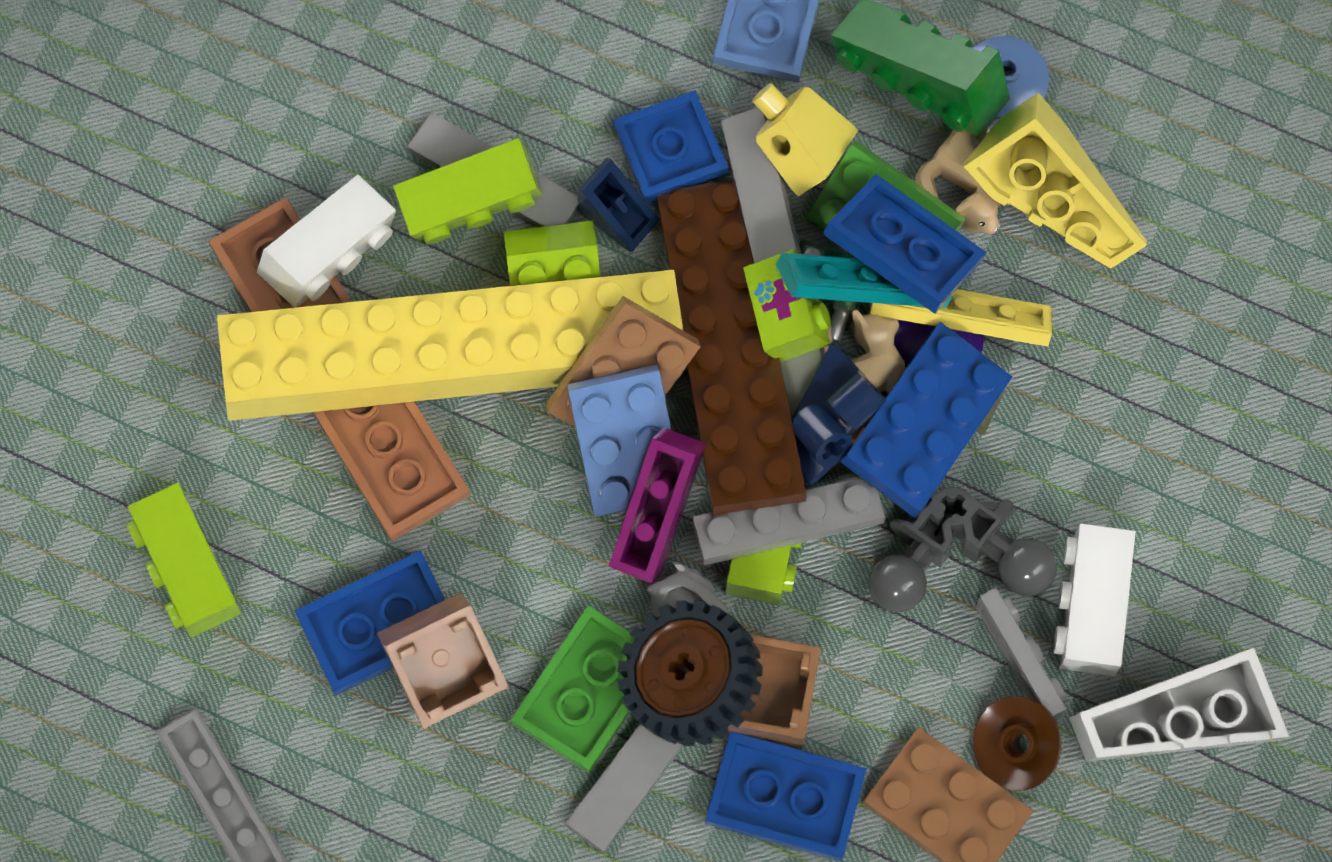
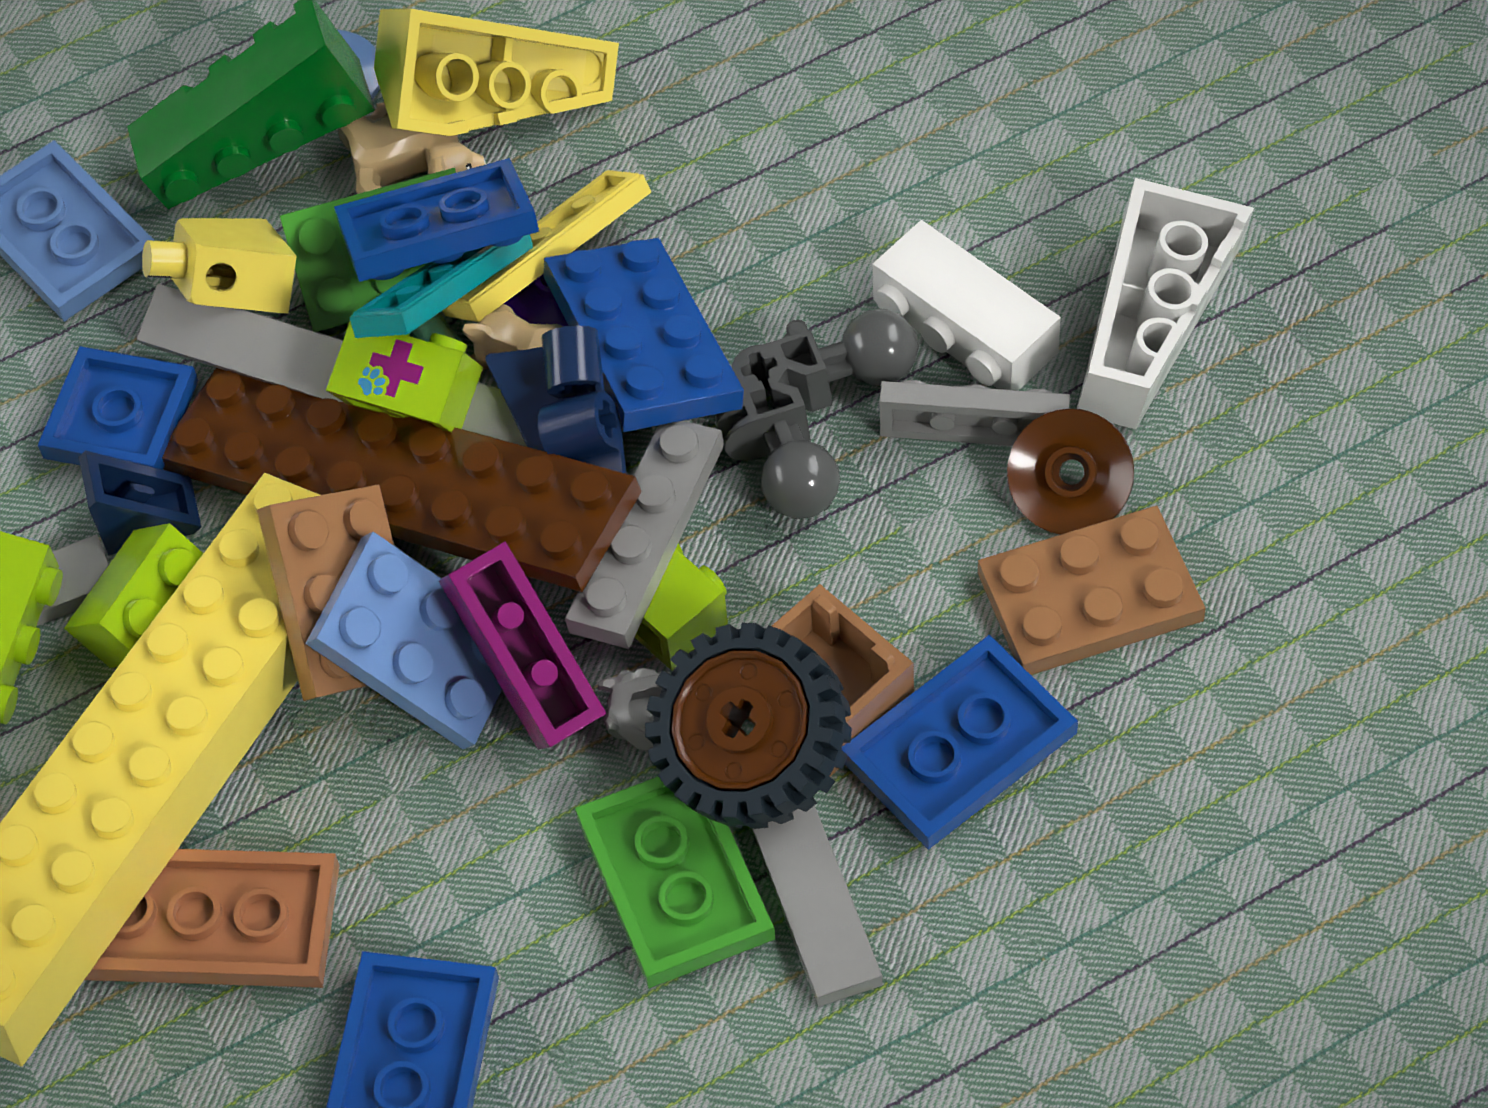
camera: 50 degrees left, 15 degrees down
(442, 660) = (518, 999): medium nougat container -> none

